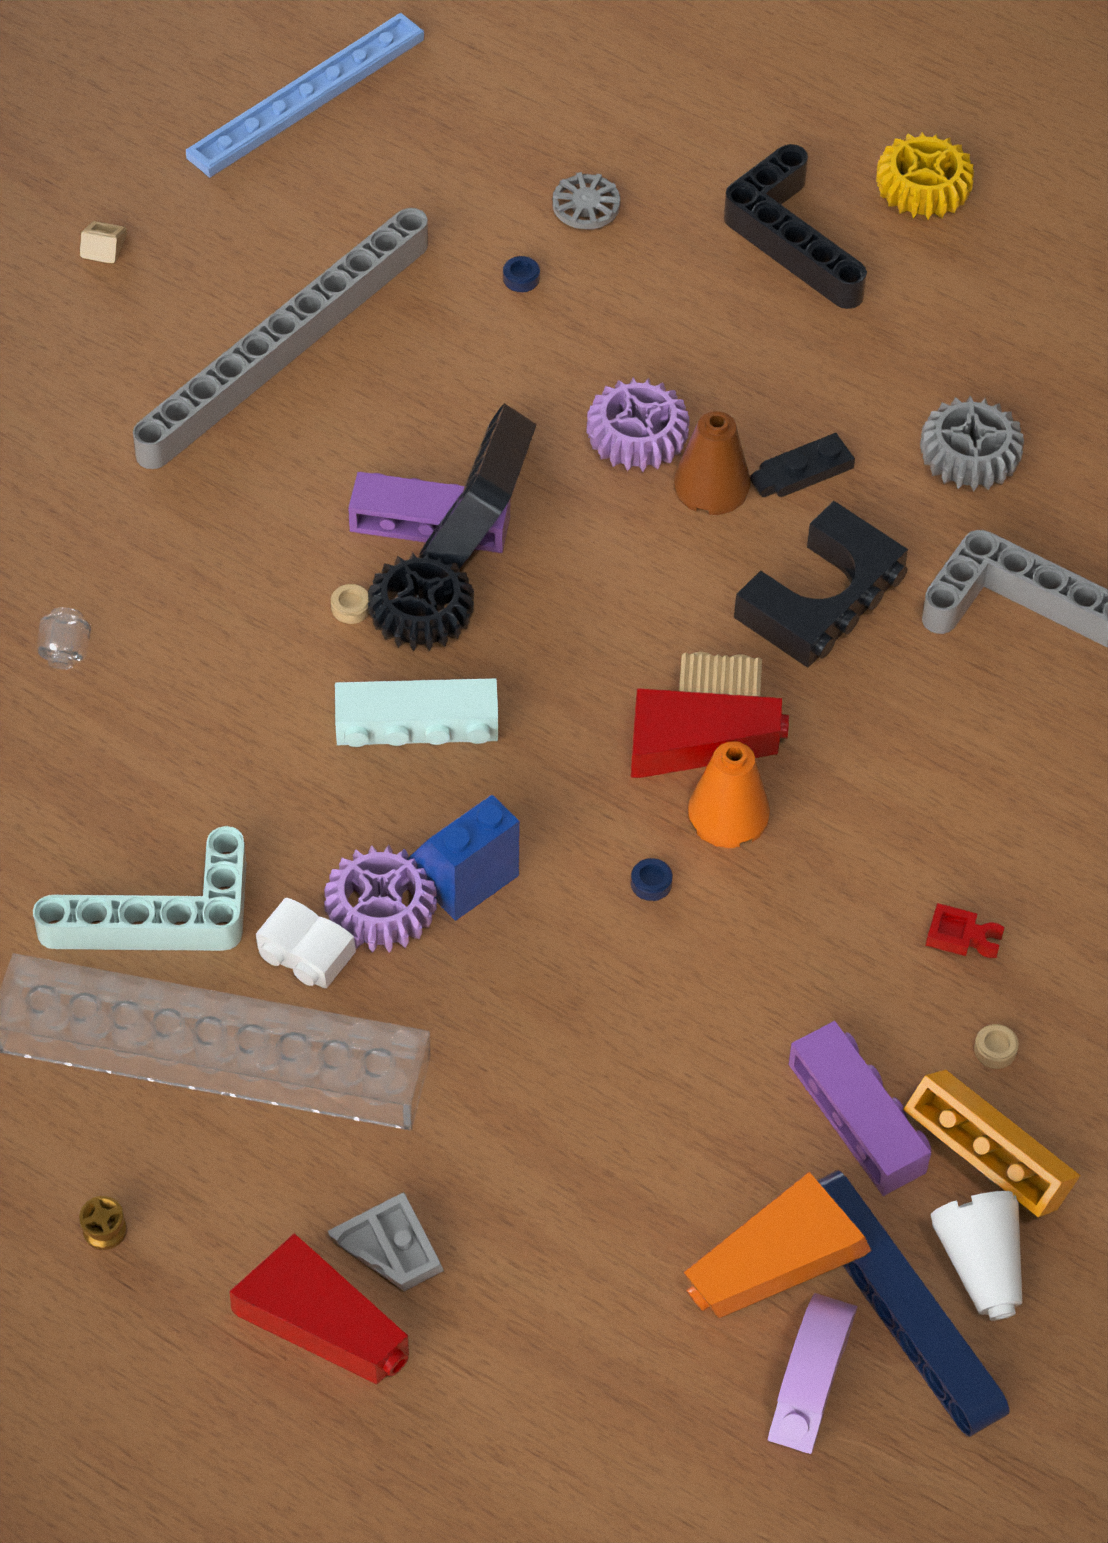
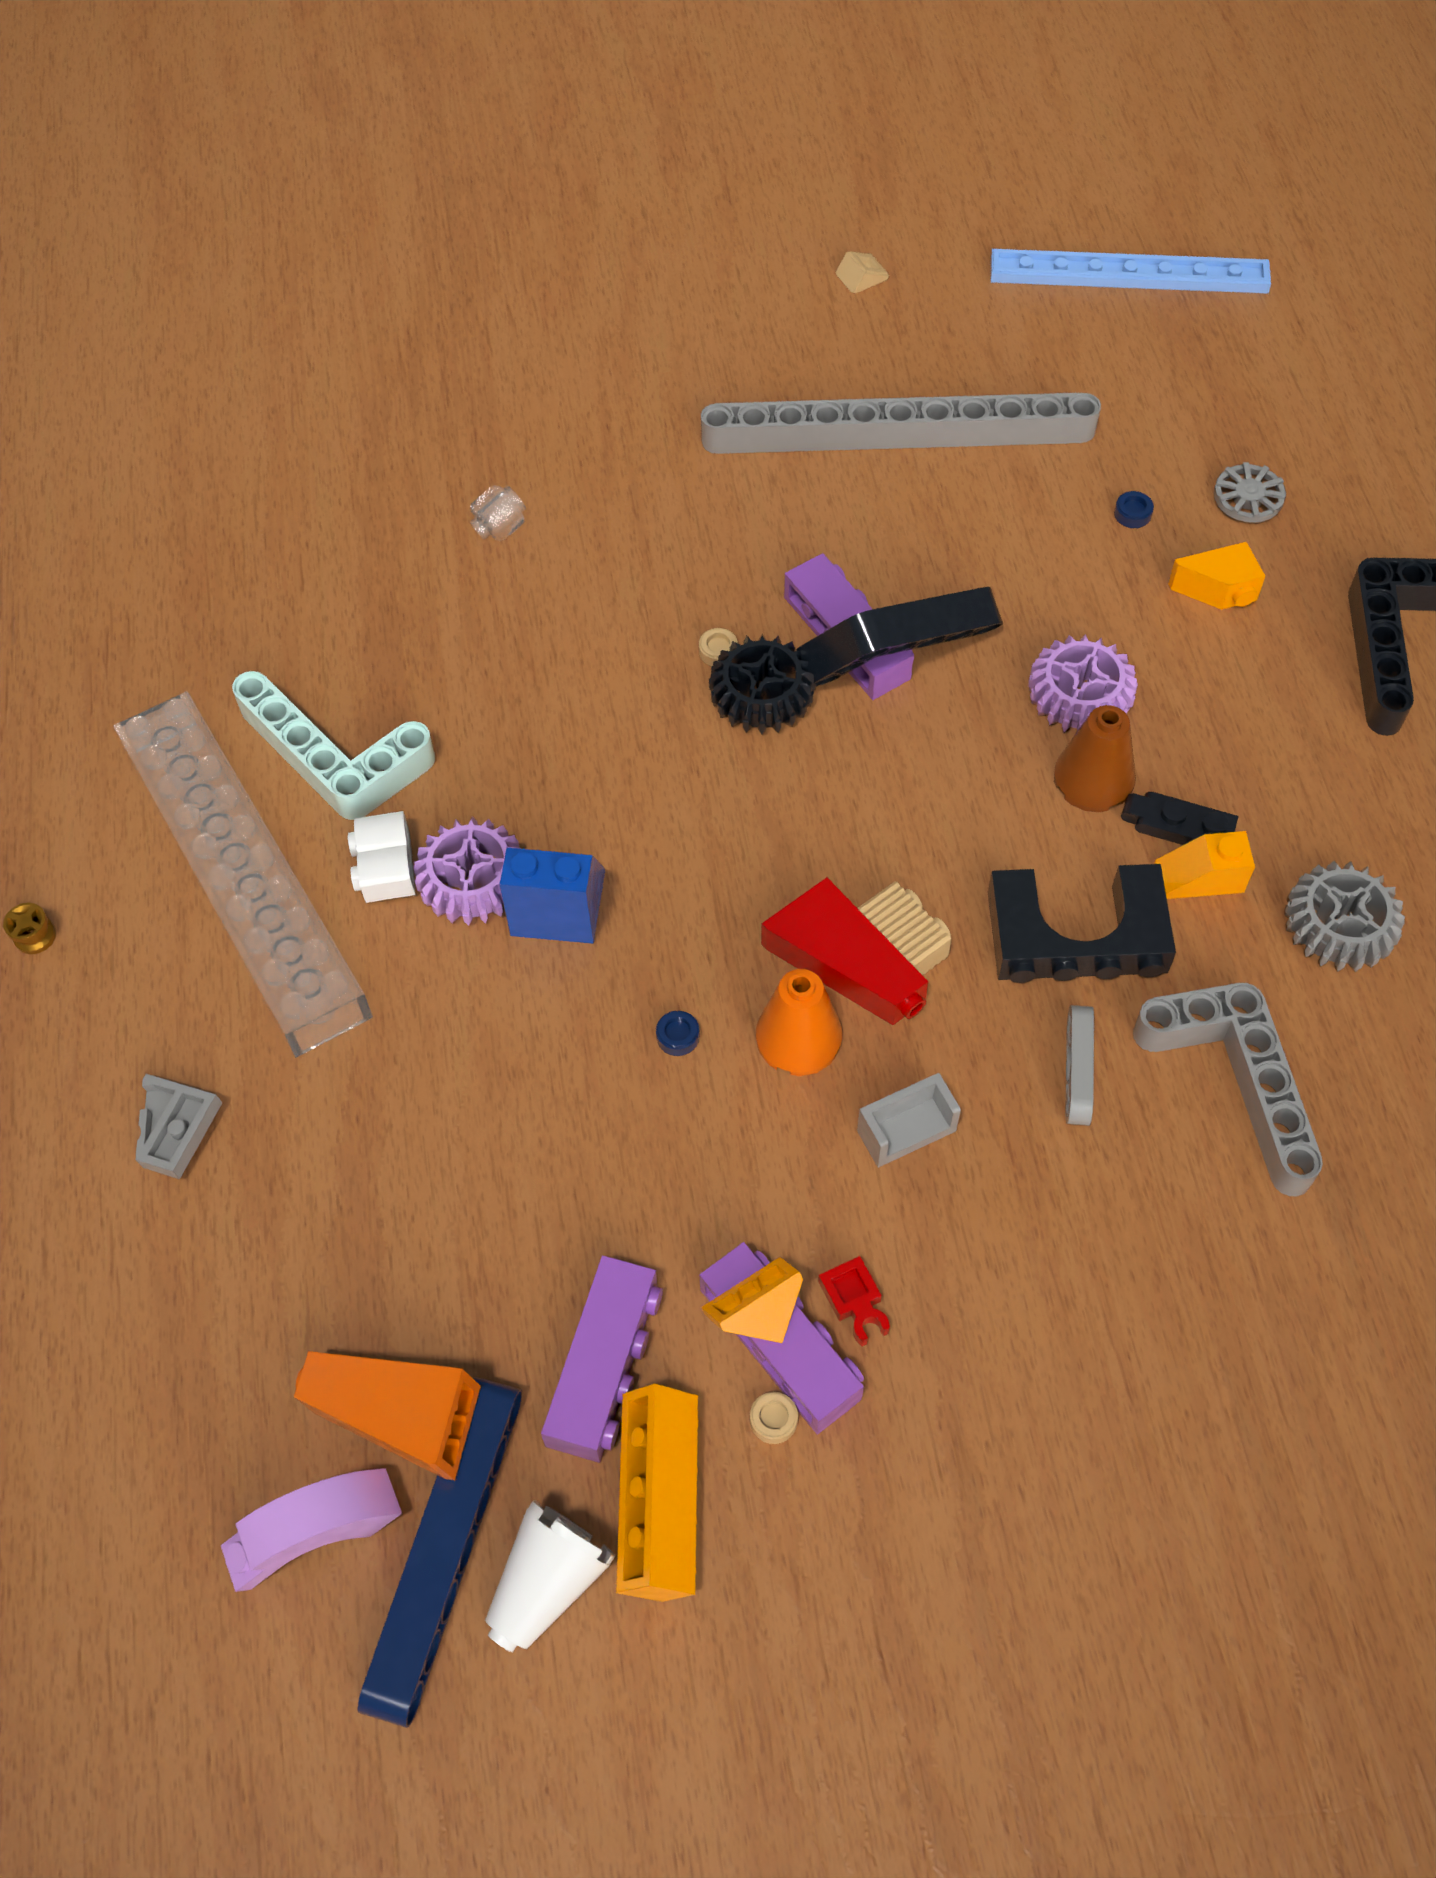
camera: 50 degrees right, 5 degrees up
(320, 1311) = (67, 1126): red slope -> none
(416, 712) = (660, 761): light aqua brick -> none
(641, 276) = (1219, 576): none -> light orange slope
(858, 476) = (1208, 866): none -> light orange slope
(867, 797) = (908, 1119): none -> light grey panel
(922, 974) = (759, 1303): none -> light orange slope
(925, 673) = (1079, 1065): none -> light grey beam
(947, 993) = (805, 1362): none -> medium lavender brick

